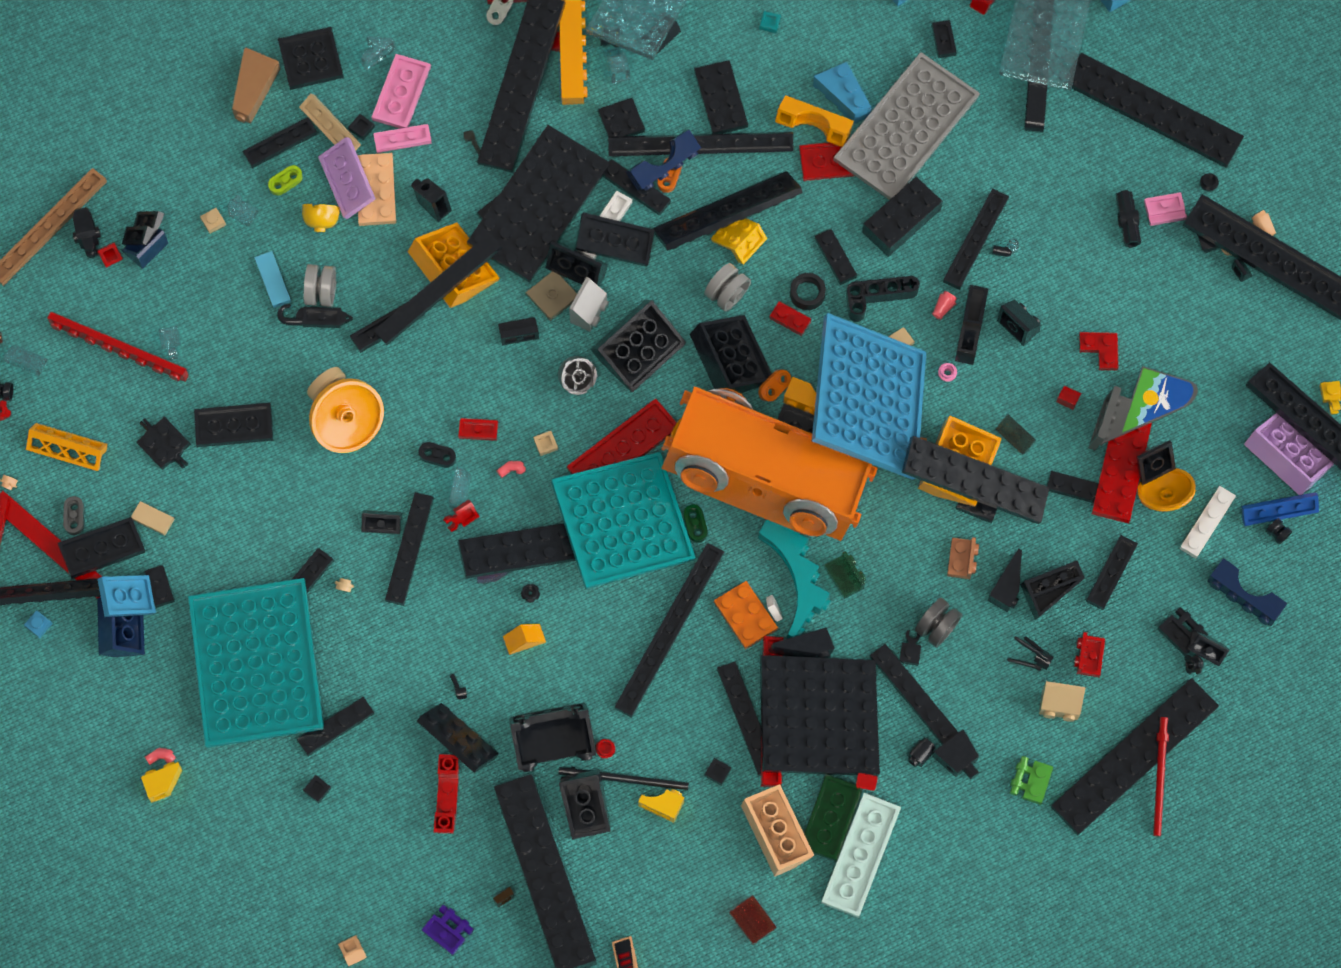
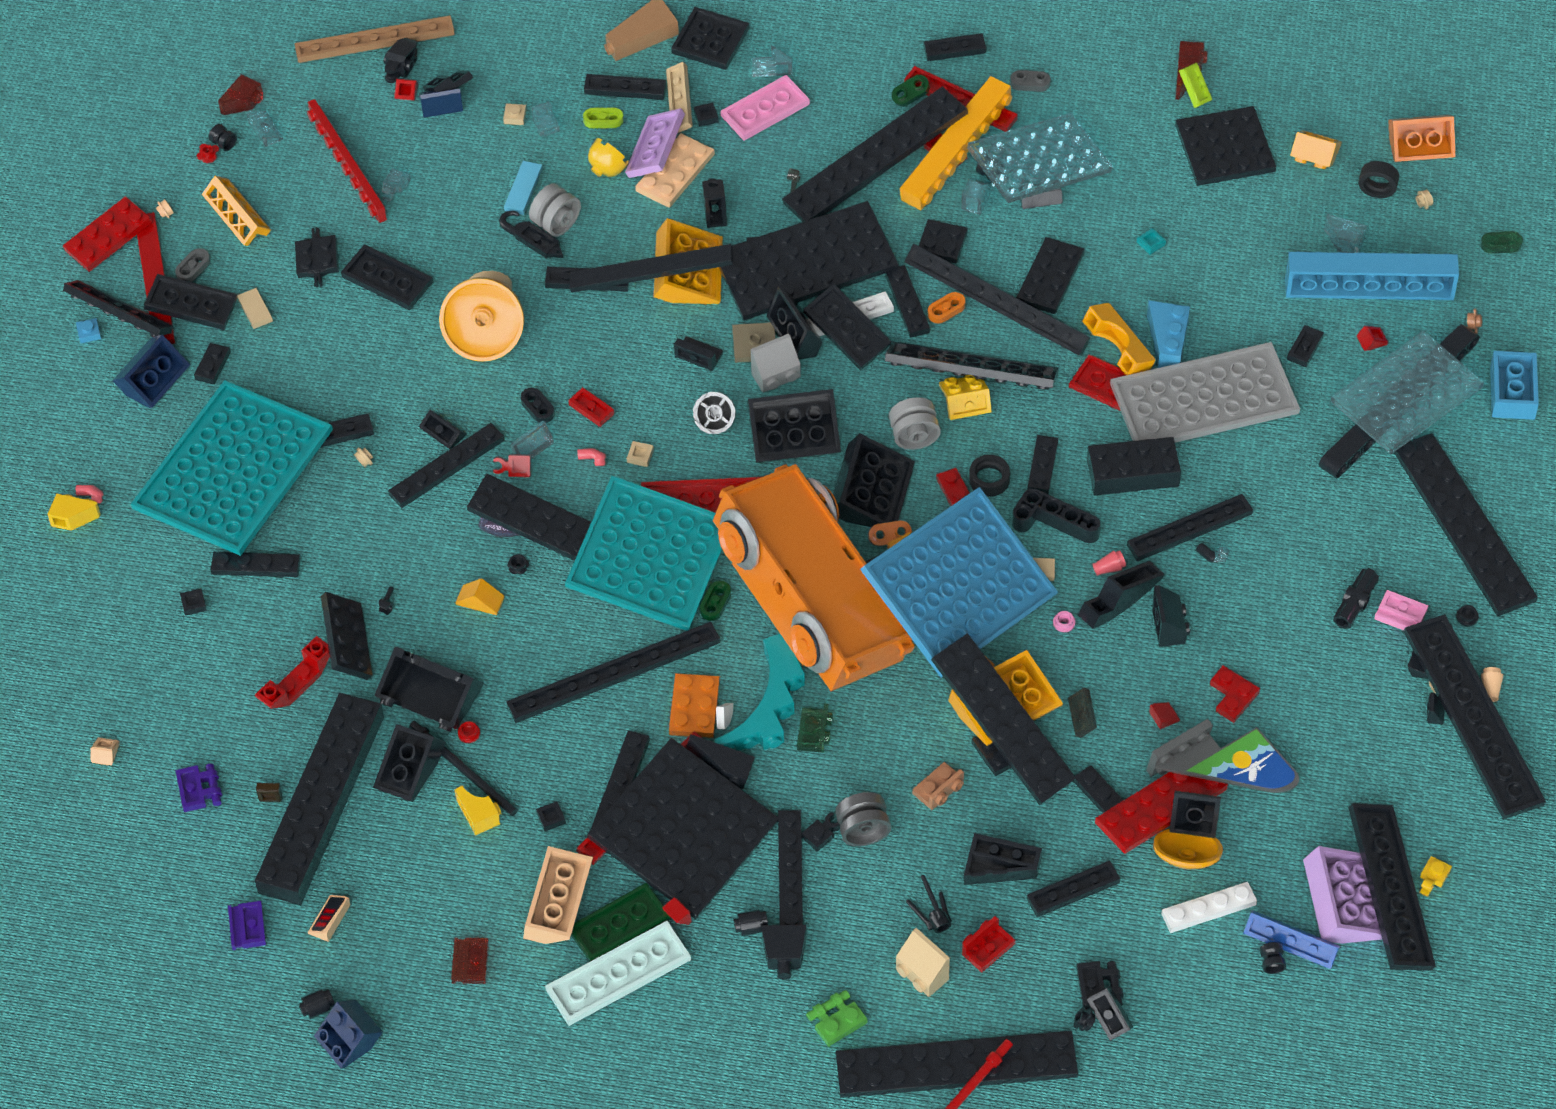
camera: 40 degrees right, 15 degrees down
(126, 595) = (173, 346): dark azure plate -> none
(402, 138) = (733, 143): bright pink plate -> none
(682, 147) = (920, 289): dark blue arch -> none
(1007, 588) = (956, 836): black slope -> none
(1265, 607) = (1201, 1016): dark blue arch -> none

